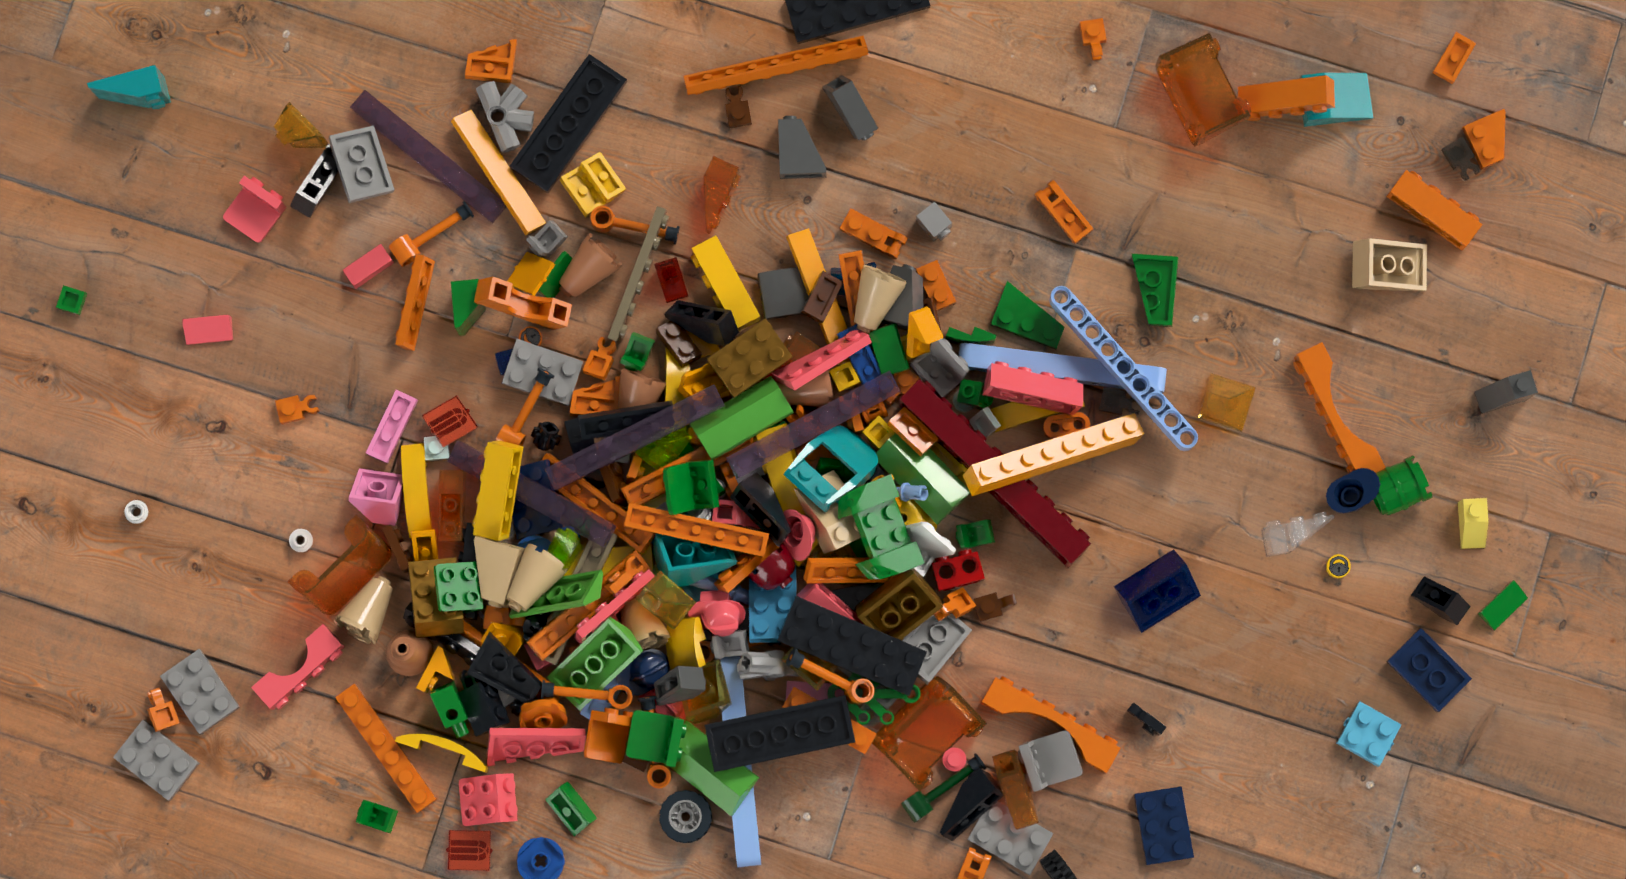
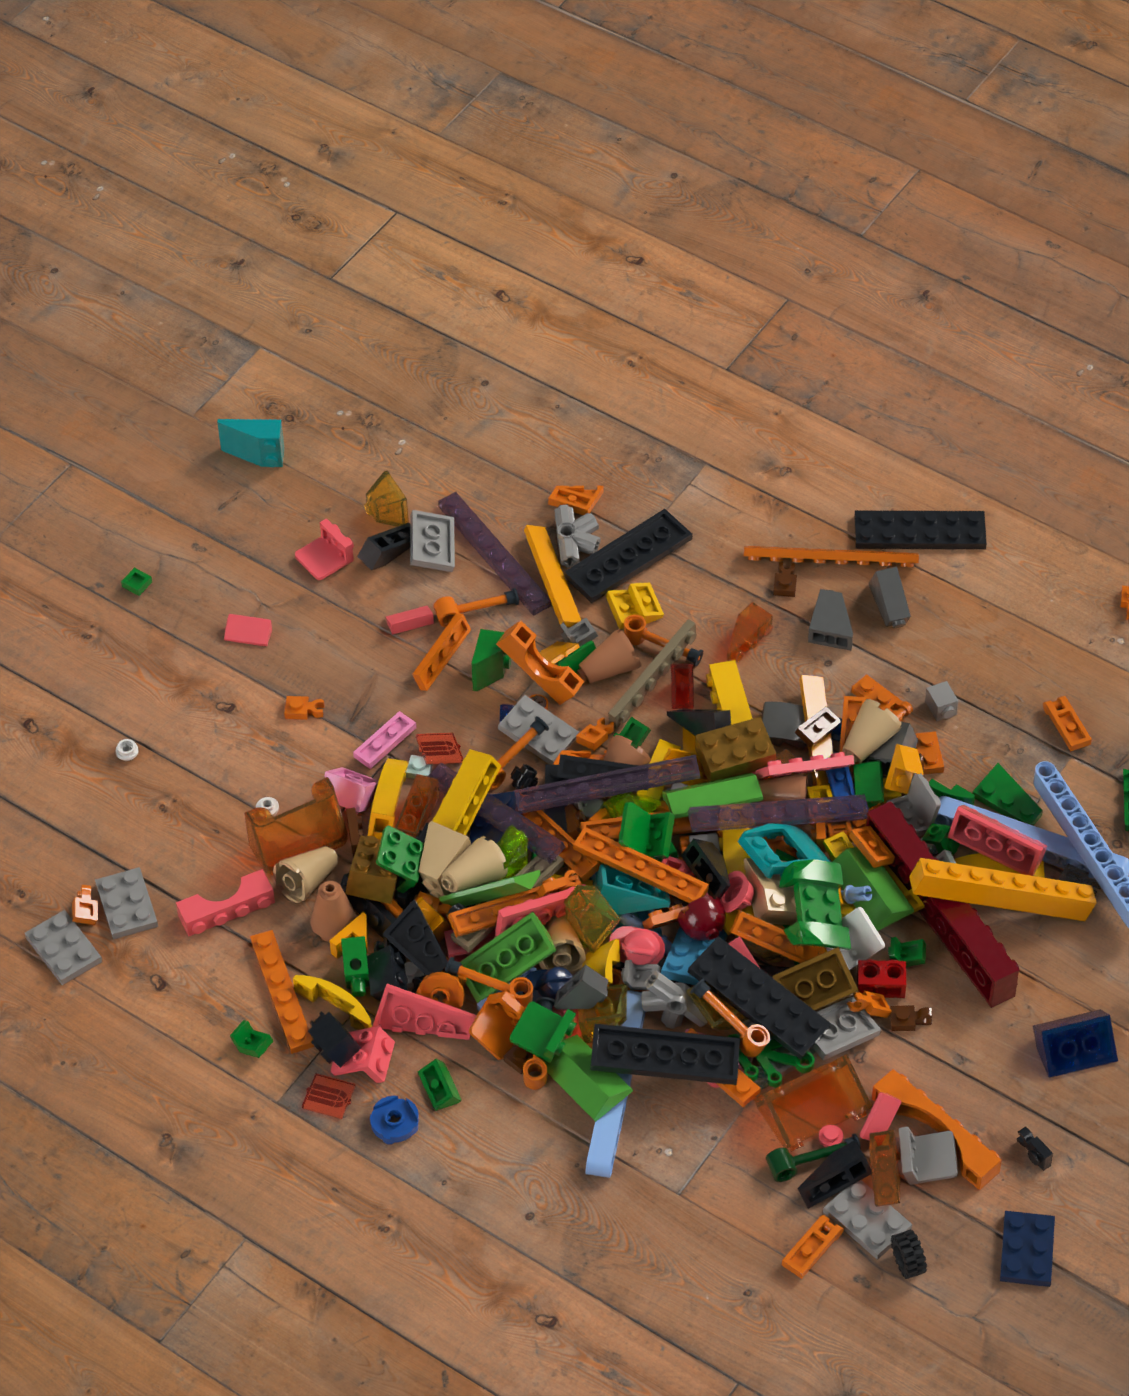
camera: 15 degrees right, 30 degrees down
(455, 796) = (332, 1039): none -> black brick
(672, 811) = (551, 1105): black wheel -> none
(678, 343) = (672, 735): reddish brown plate -> none
(997, 732) = (880, 1115): none -> coral slope

